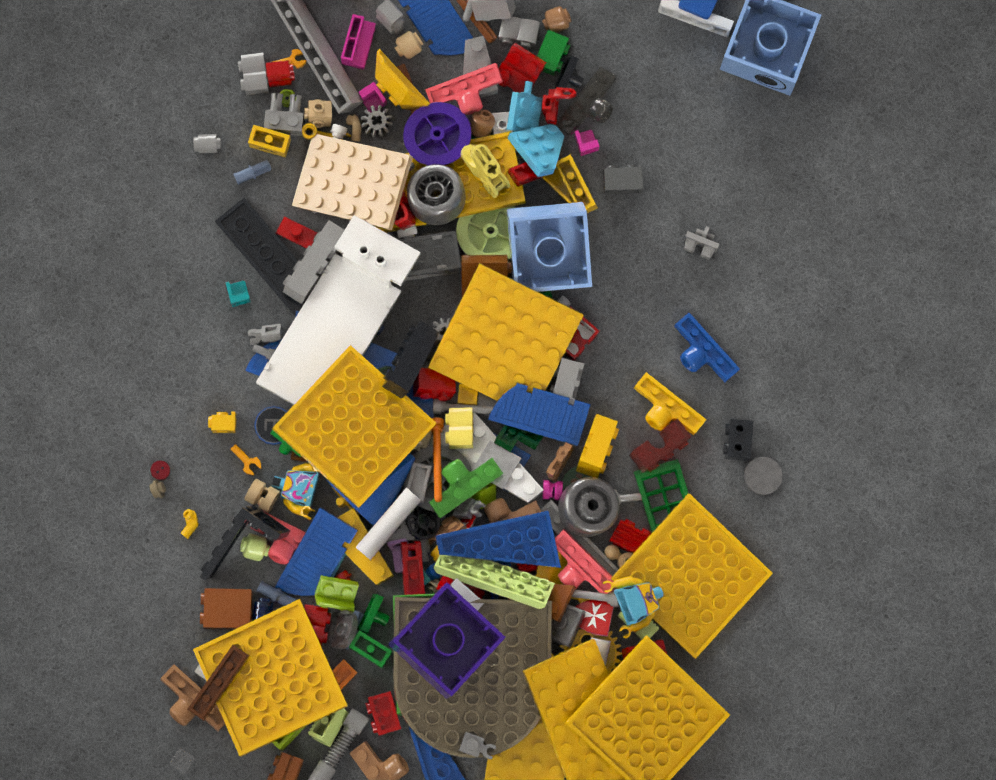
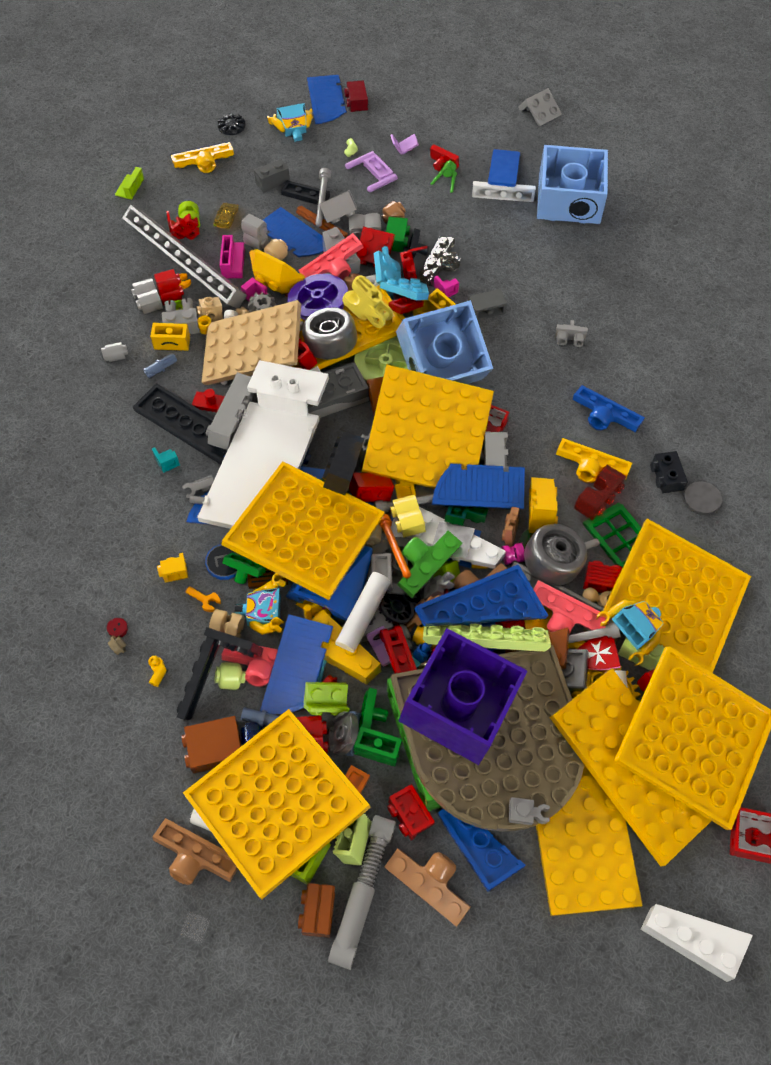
camera: 10 degrees left, 20 degrees down
(218, 682) = (217, 821): reddish brown tile -> none

